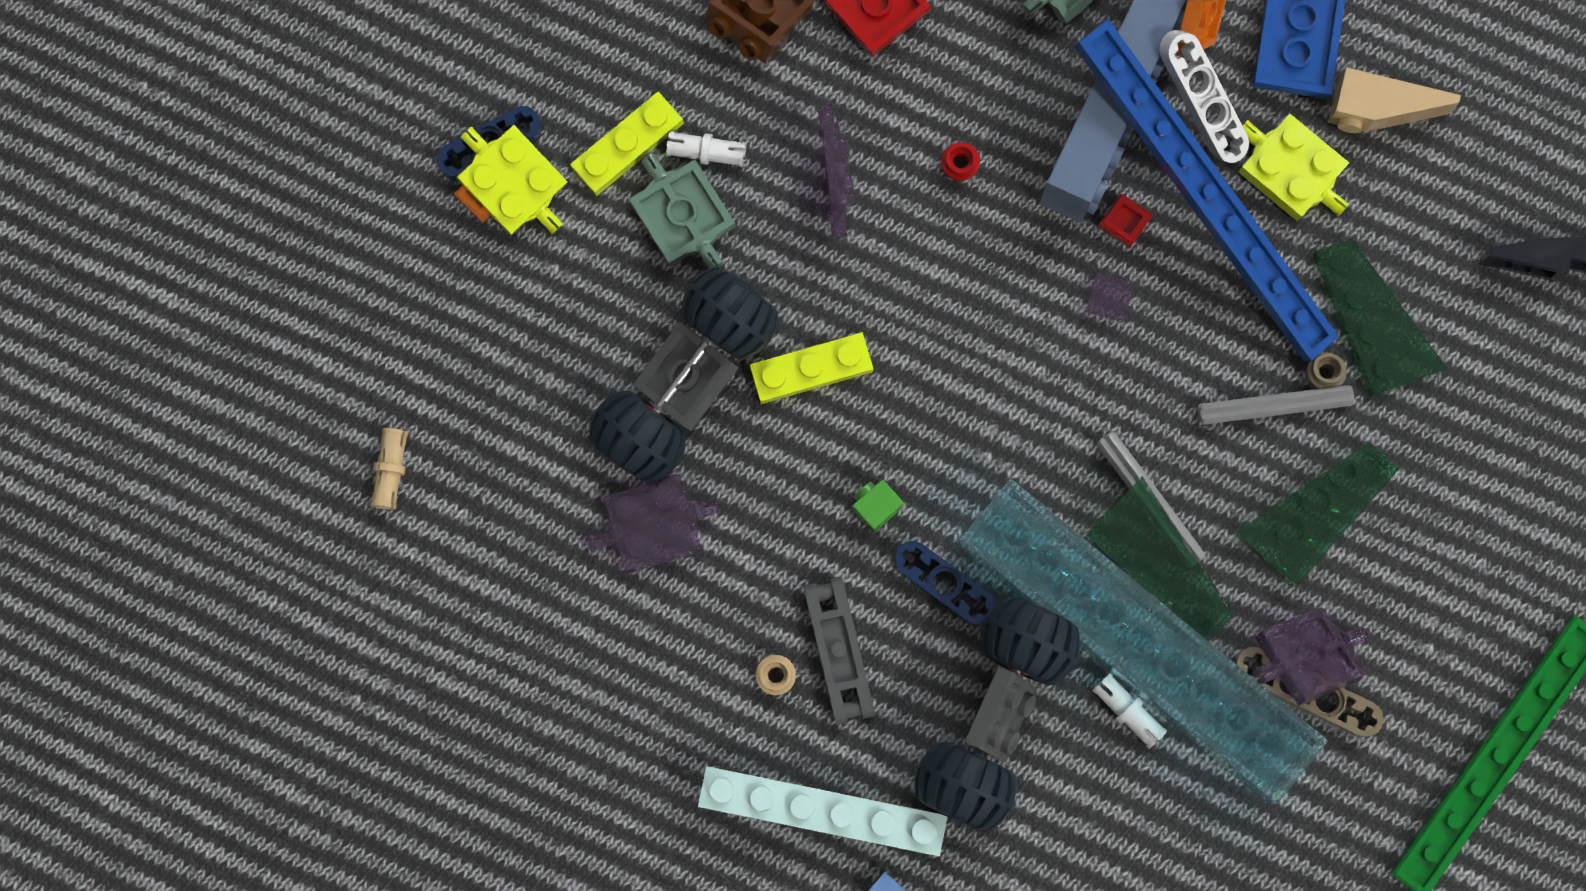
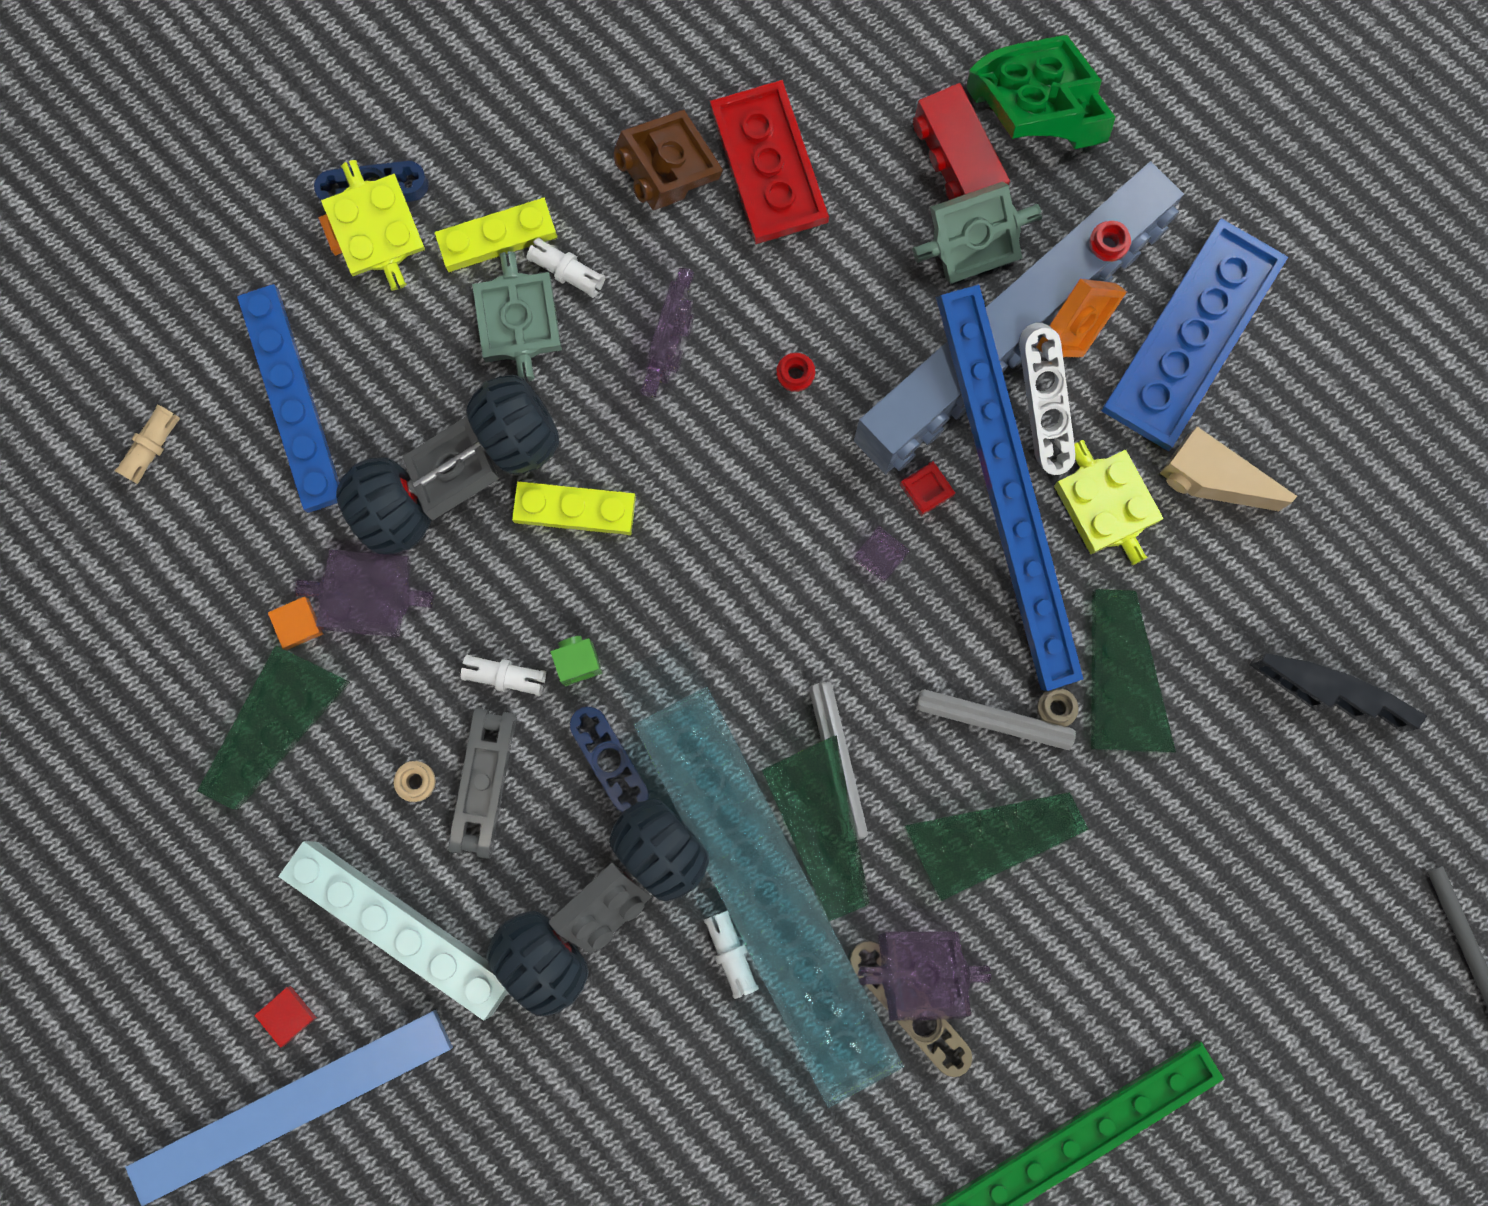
camera: 20 degrees right, 0 degrees up
(503, 372) = (290, 397): none -> blue plate
(601, 577) = (295, 623): none -> orange tile
(622, 669) = (270, 723): none -> clear green wing
(814, 546) = (503, 675): none -> white pin

